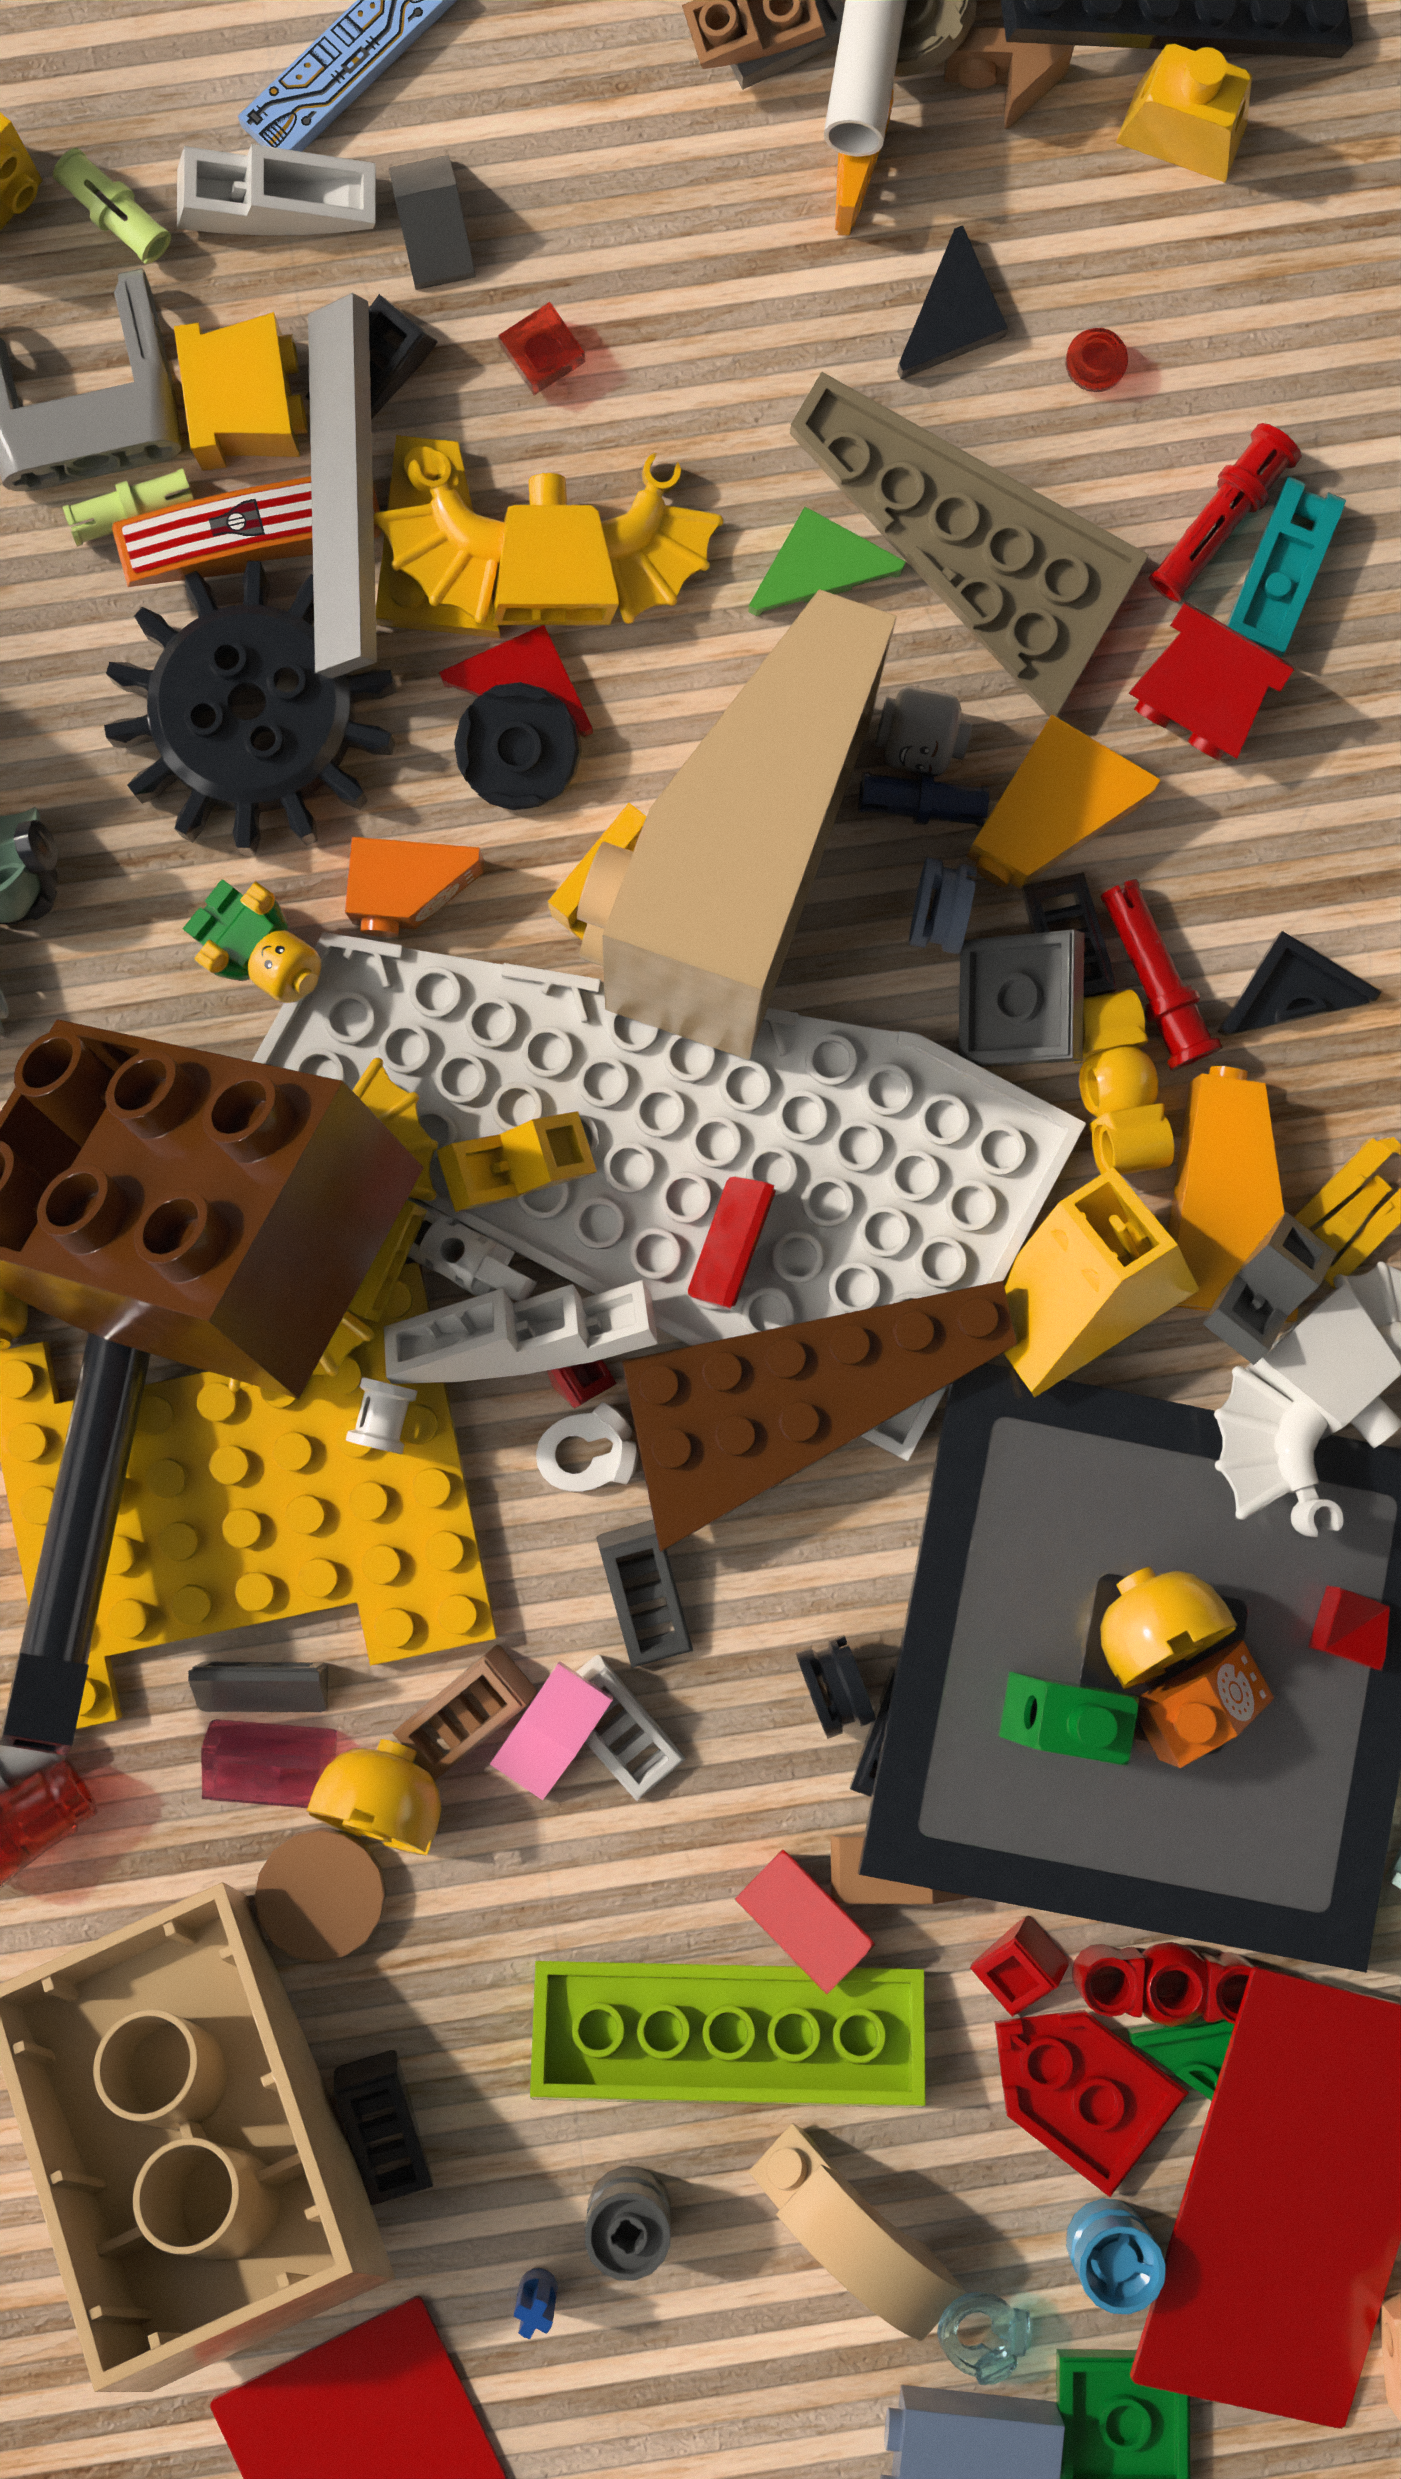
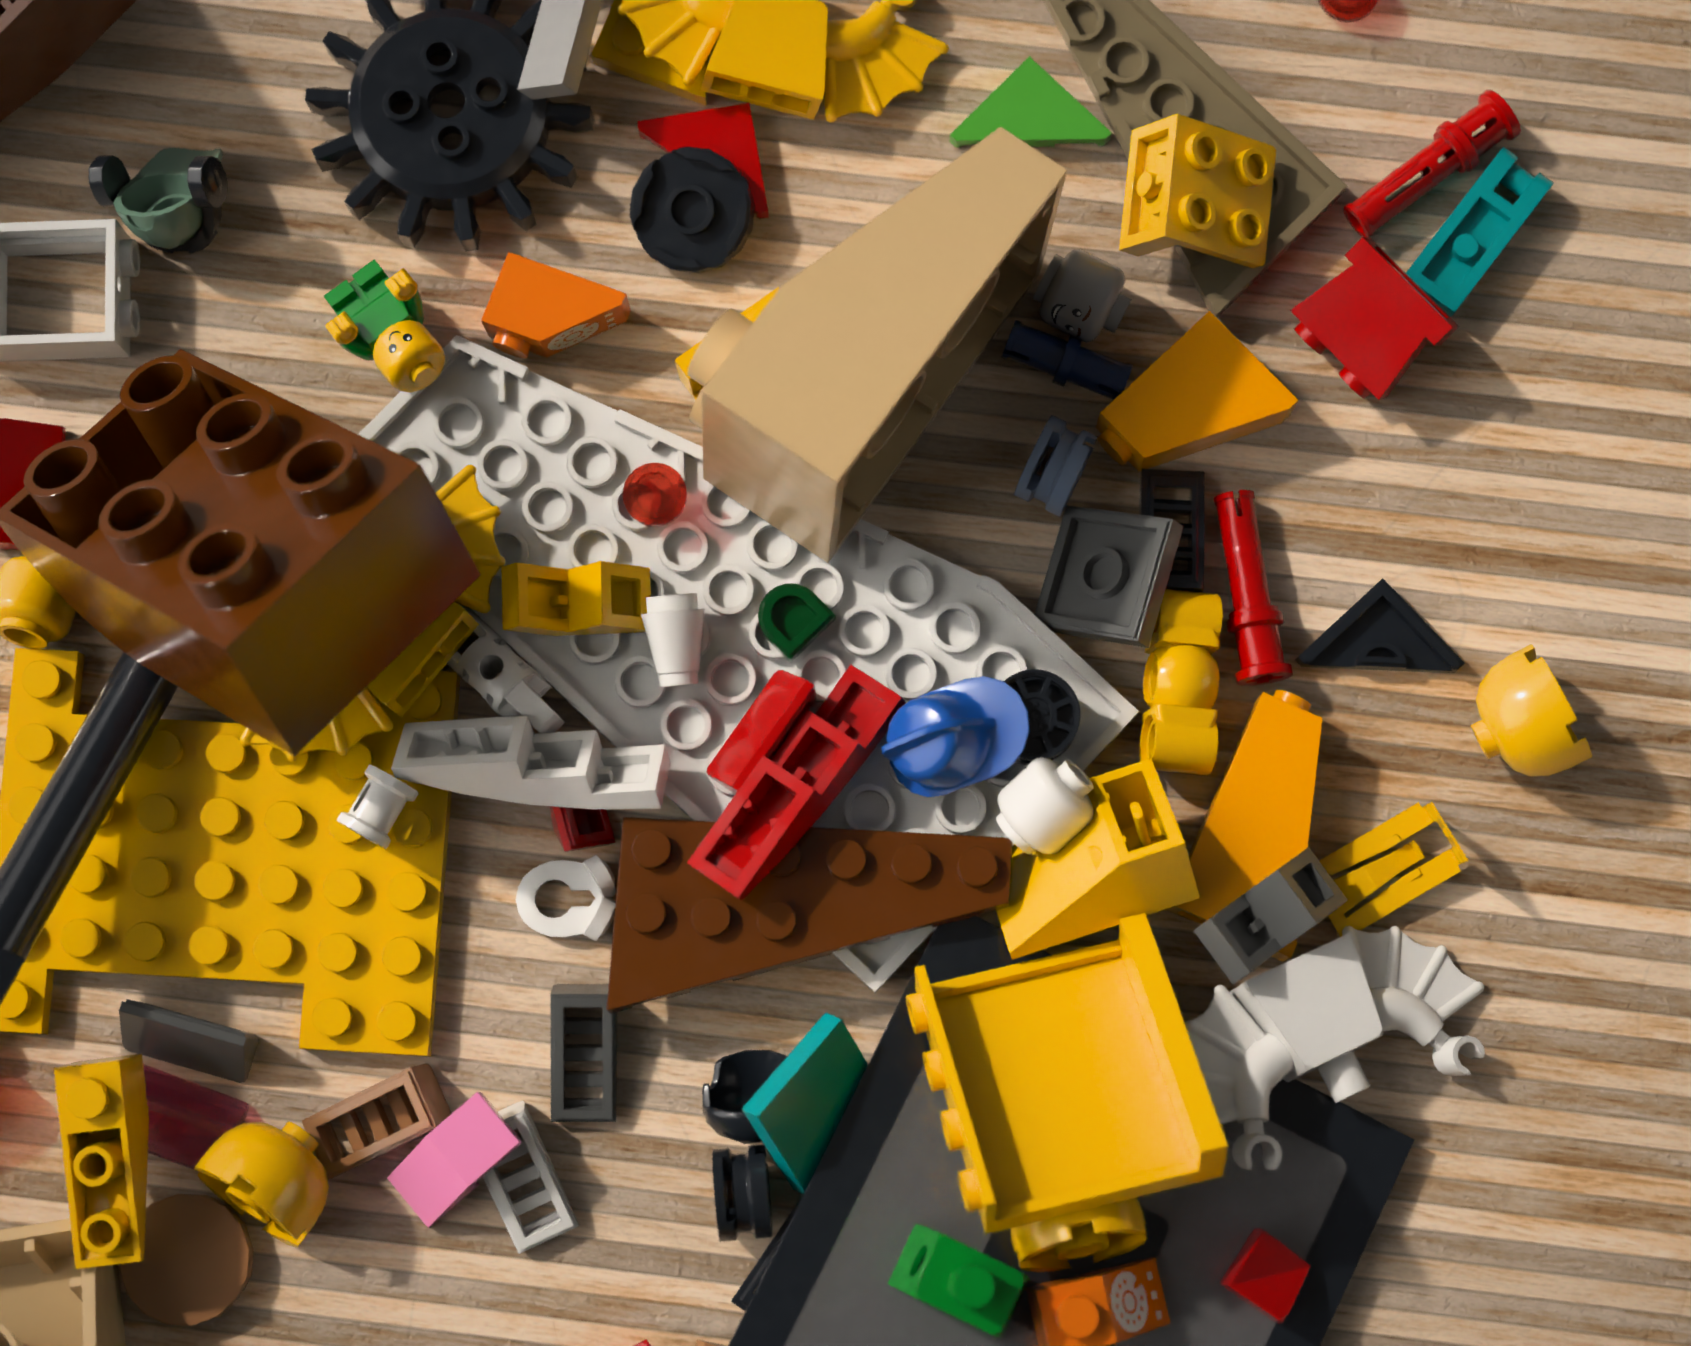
camera: 25 degrees right, 5 degrees down
(217, 1825) = (105, 1157): none -> yellow slope
(563, 1038) = (655, 494): none -> clear red plate
(623, 1172) = (674, 637): none -> white cone
(730, 1123) = (793, 618): none -> dark green tile
(783, 1284) = (797, 785): none -> red slope
(819, 1591) = (733, 1085): none -> black hair
(876, 1583) = (806, 1099): none -> teal tile
(923, 1196) = (957, 736): none -> blue piece
(990, 1157) = (1051, 711): none -> black wheel
(1007, 599) = (1197, 191): none -> yellow bracket
(1026, 1241) = (1045, 806): none -> white head
(1125, 1500) = (1068, 1081): none -> yellow panel

